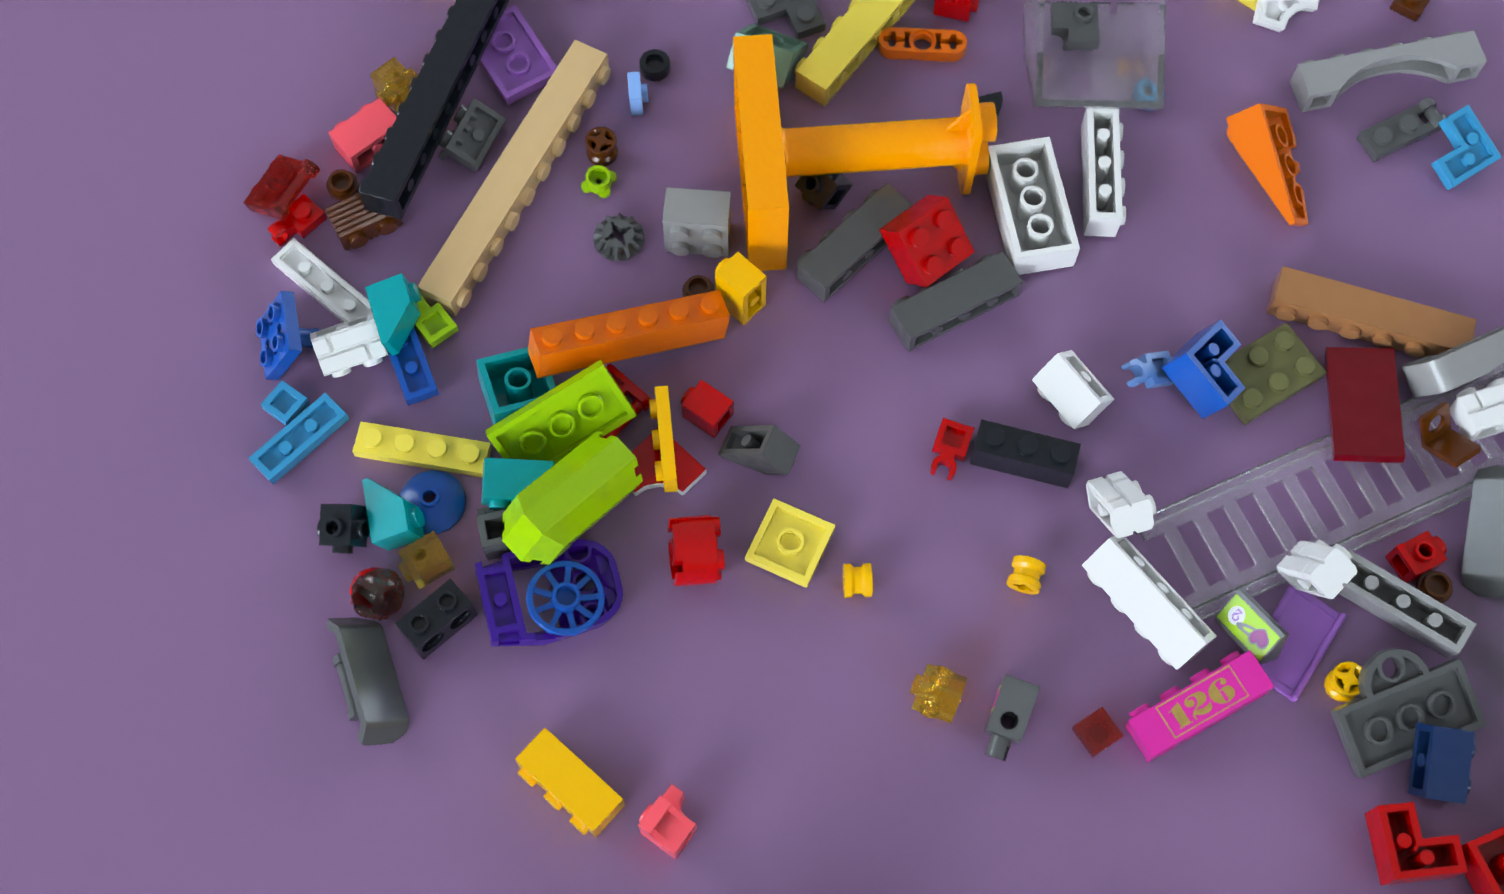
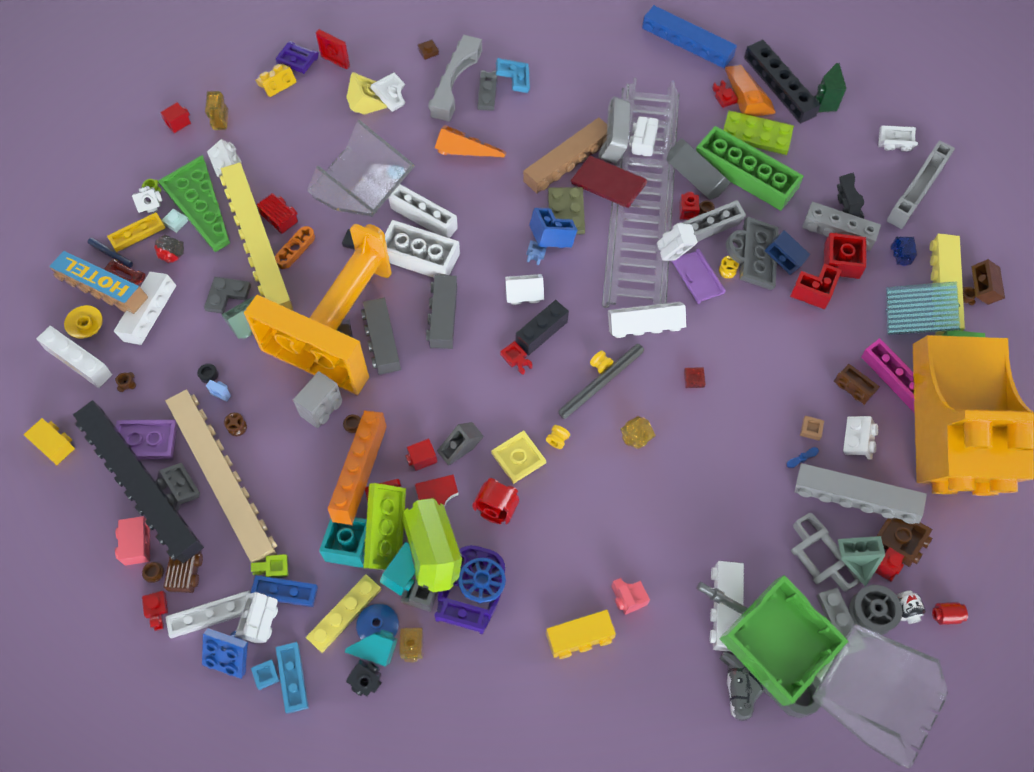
camera: 60 degrees left, 5 degrees down
(280, 186) = (123, 606): clear red plate -> none
(369, 680) = (460, 709): dark grey piece -> none
(377, 593) = (414, 679): clear smoke piece -> none
(392, 82) = (116, 507): clear yellow brick -> none
(394, 310) = (255, 578): teal slope -> none
(436, 618) = (449, 655): black brick -> none
(597, 173) = (250, 433): lime plate -> none
(614, 249) = (298, 451): dark grey gear -> none
(663, 439) = (426, 482): yellow plate -> none
(741, 287) = (368, 398): yellow brick -> none
(927, 240) = (406, 302): red brick -> none
(998, 593) = (600, 381): none -> dark grey axle
(1015, 700) = (666, 407): dark grey torso -> none
(1076, 25) = (344, 173): dark grey brick -> none
(1121, 504) = (595, 301): white brick -> none
(1199, 705) = (707, 329): dark pink brick -> none
(1252, 627) = (684, 285): slope -> none
(1443, 440) = (647, 162): reddish brown bracket -> none

